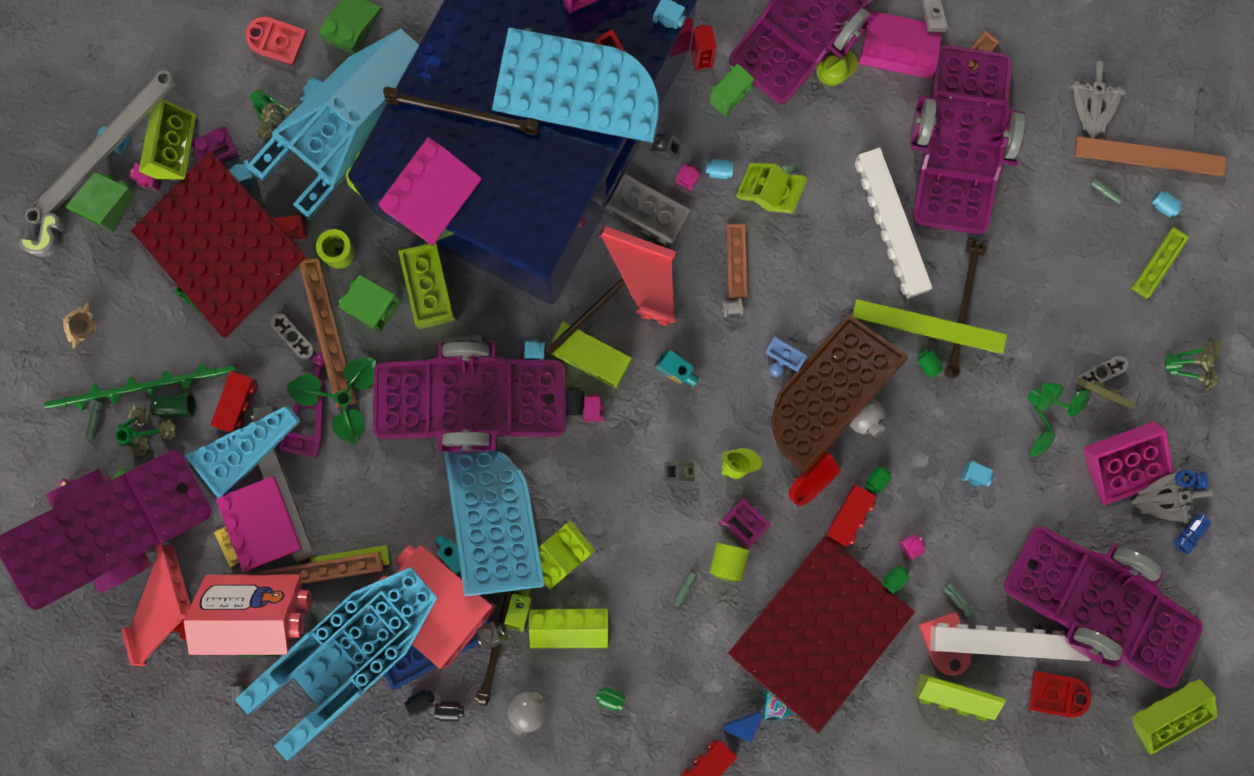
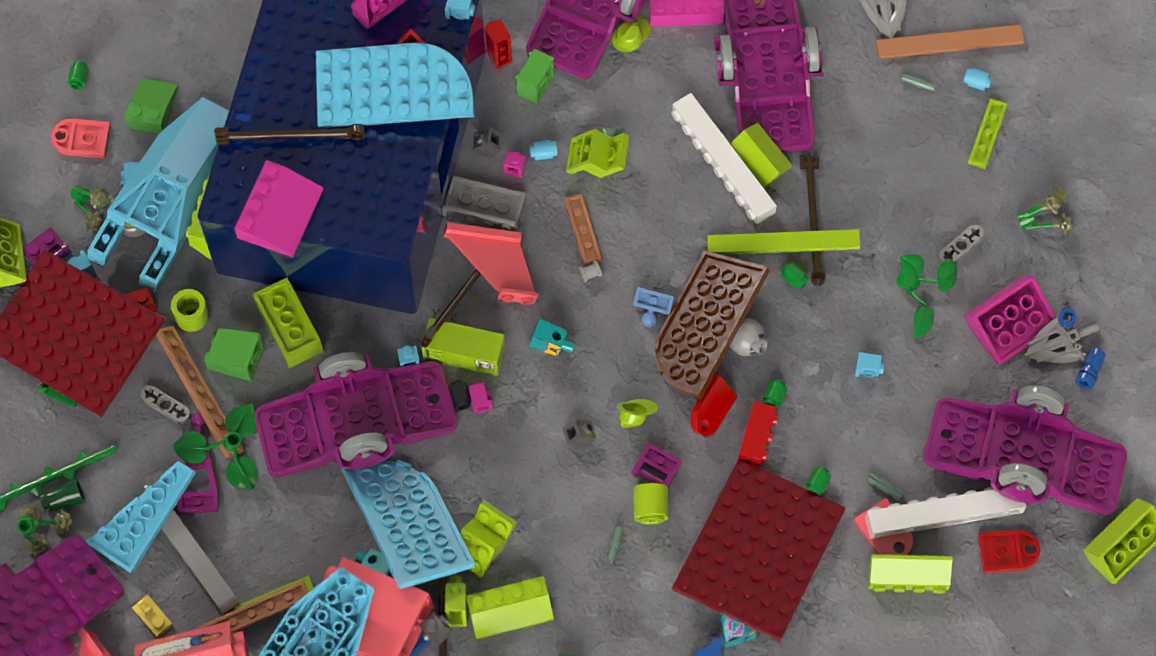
camera: 10 degrees left, 15 degrees down
(234, 402) = (122, 478): red brick -> none
(258, 524) = (177, 584): dark pink slope -> none
(912, 546) = (825, 446): dark pink brick -> none
(931, 230) = (760, 155): none -> lime slope
(1112, 395) = (974, 260): olive plate -> none
(1201, 481) = (1083, 318): blue bush -> none

